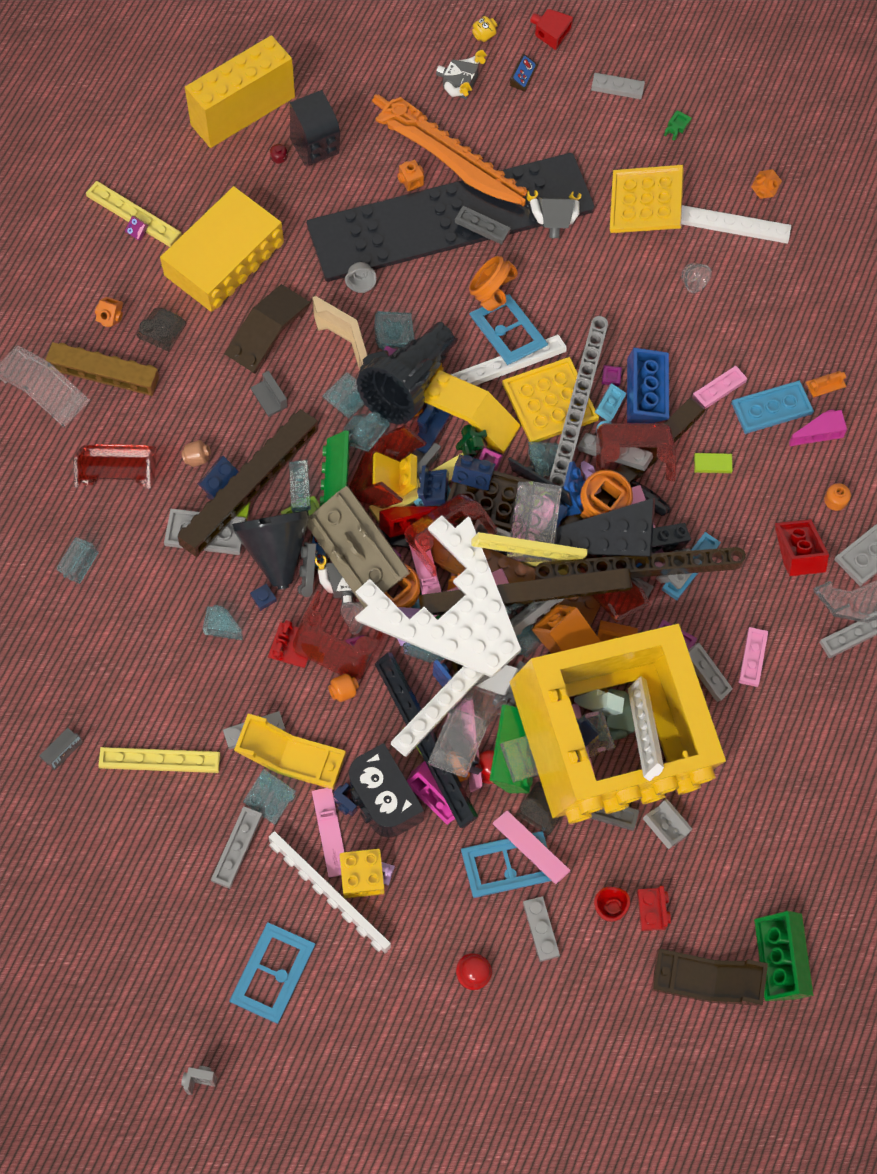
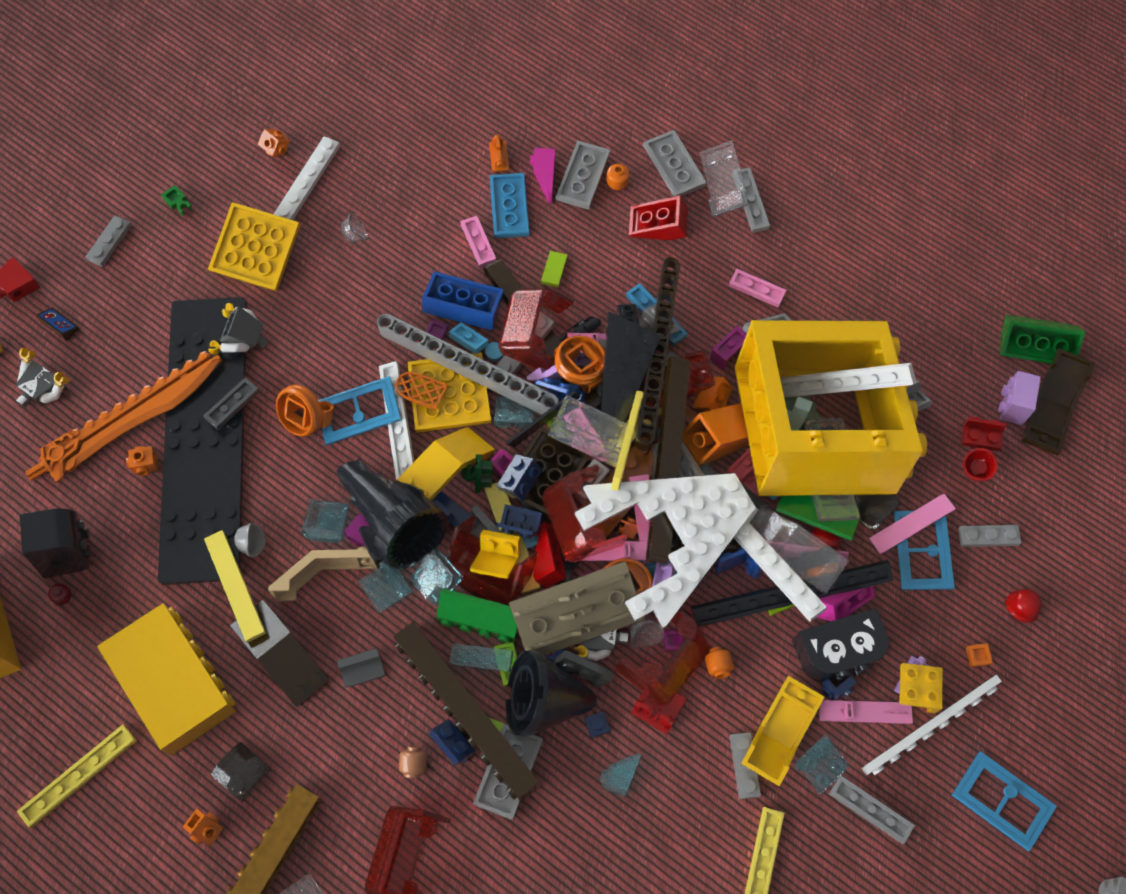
camera: 75 degrees left, 0 degrees up
(136, 228) = (99, 774): tile -> none
(314, 275) = (235, 586): none -> light yellow tile
(410, 930) = (979, 655): none -> orange plate
(536, 373) = (422, 377): none -> orange window
(702, 935) = (1019, 398): none -> lavender brick
(830, 465) = (583, 175): none -> light grey plate

